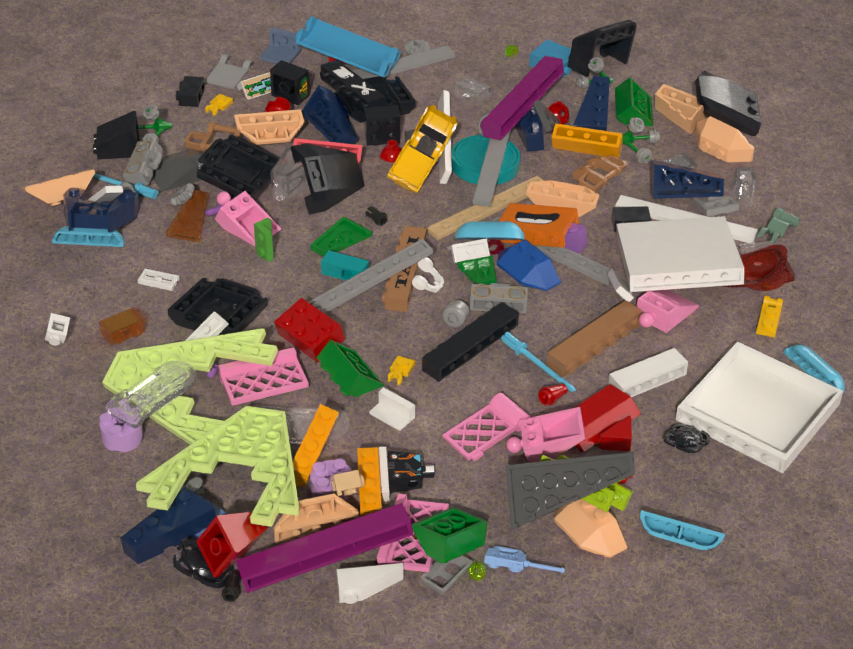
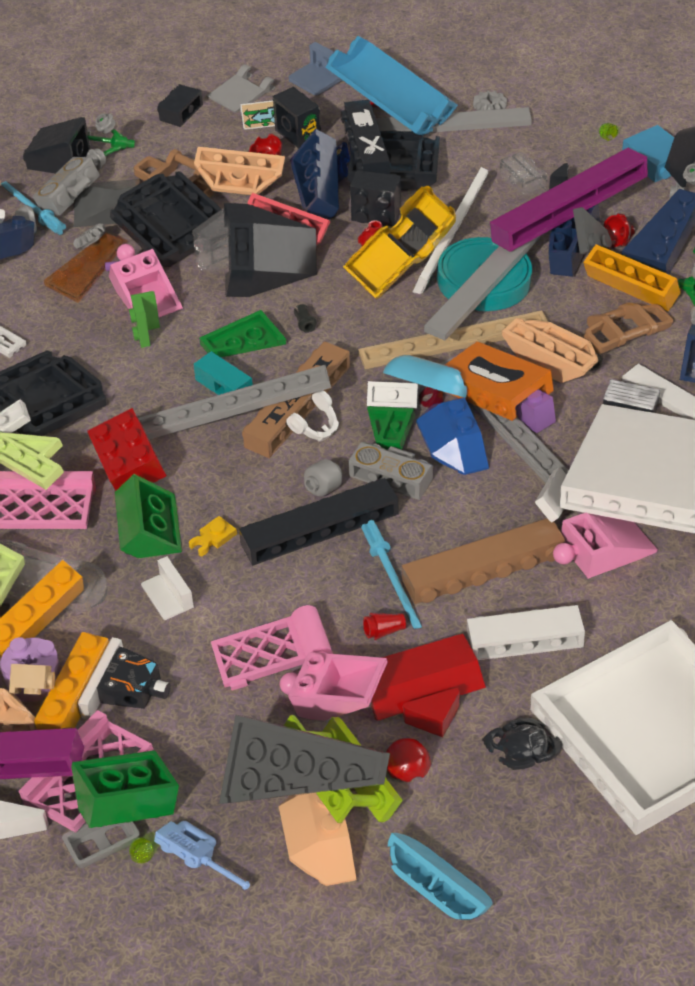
camera: 25 degrees right, 5 degrees up
(219, 102) = (207, 127): yellow plate -> none
(499, 88) = (559, 176): none -> black slope

